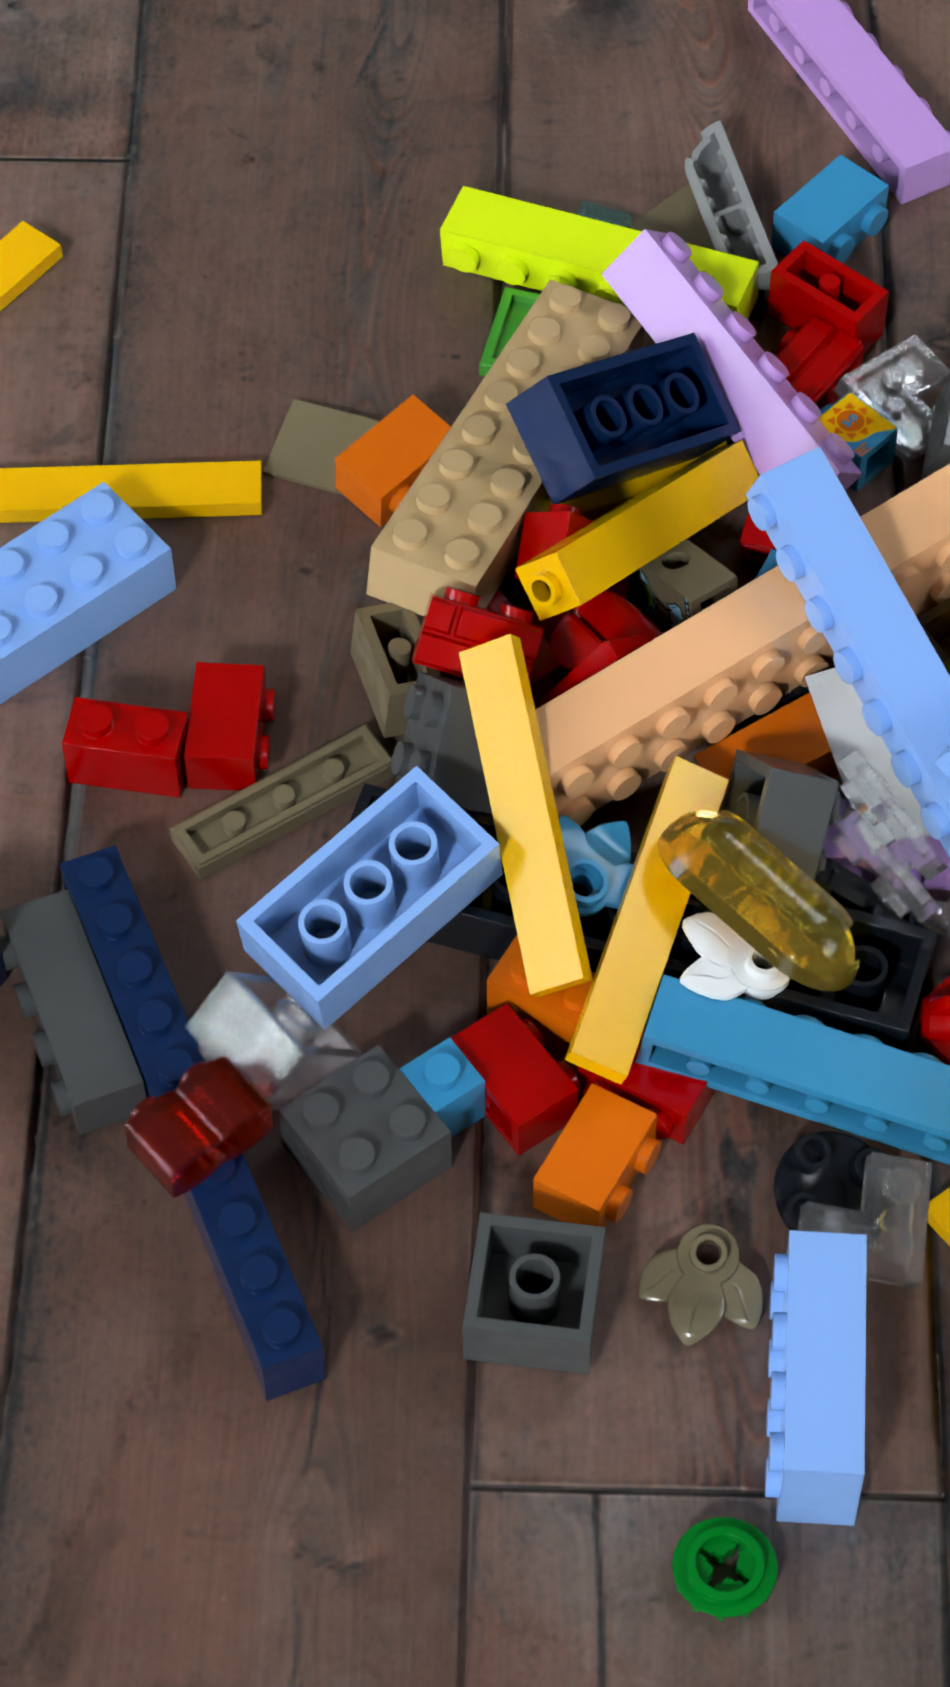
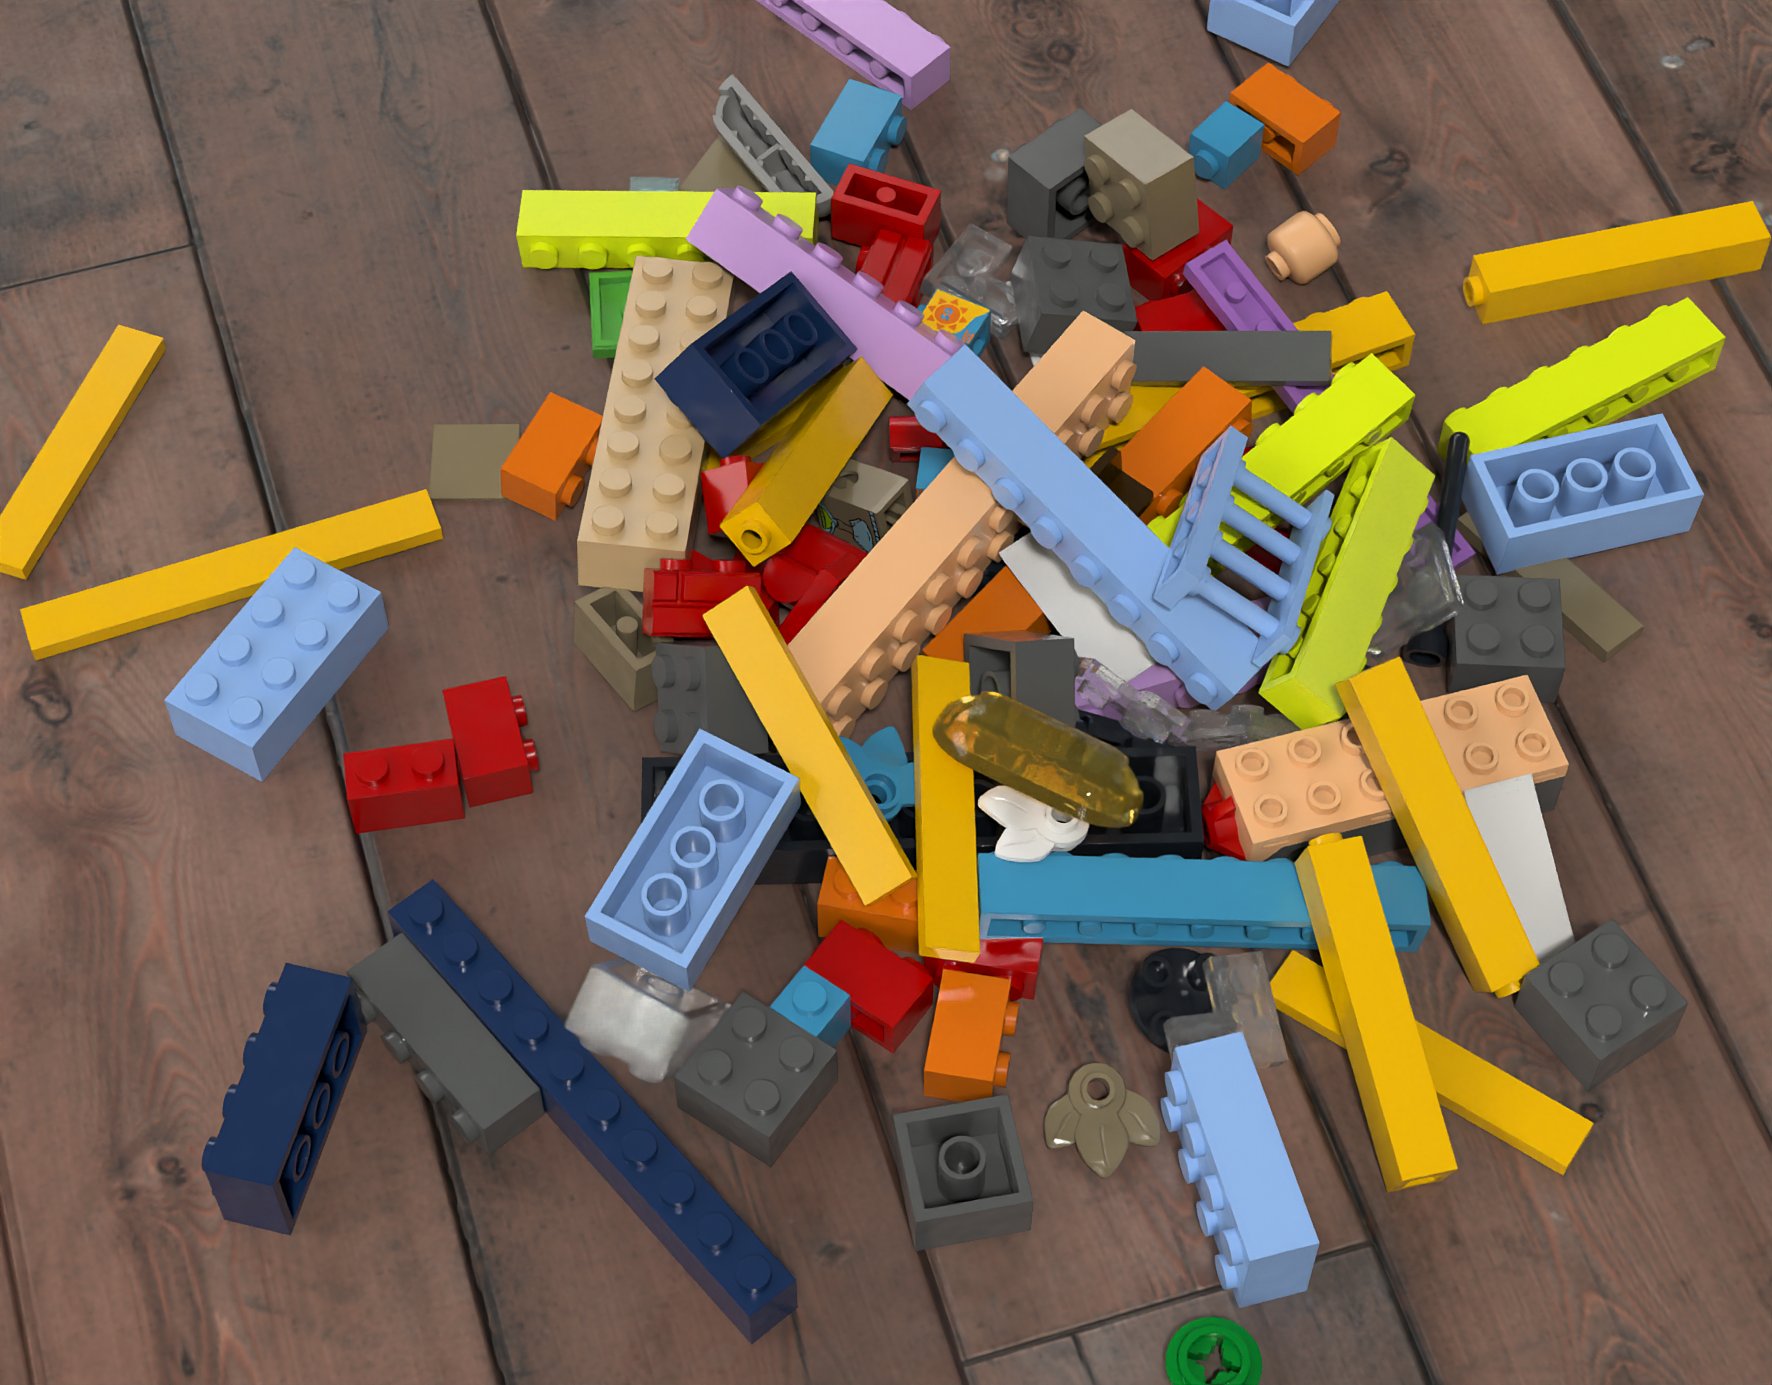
camera: 20 degrees left, 0 degrees up
(198, 1125) = (613, 1113): clear red brick -> none
(282, 801) = (562, 795): dark tan tile -> none
(878, 802) = (1110, 646): clear plate -> none

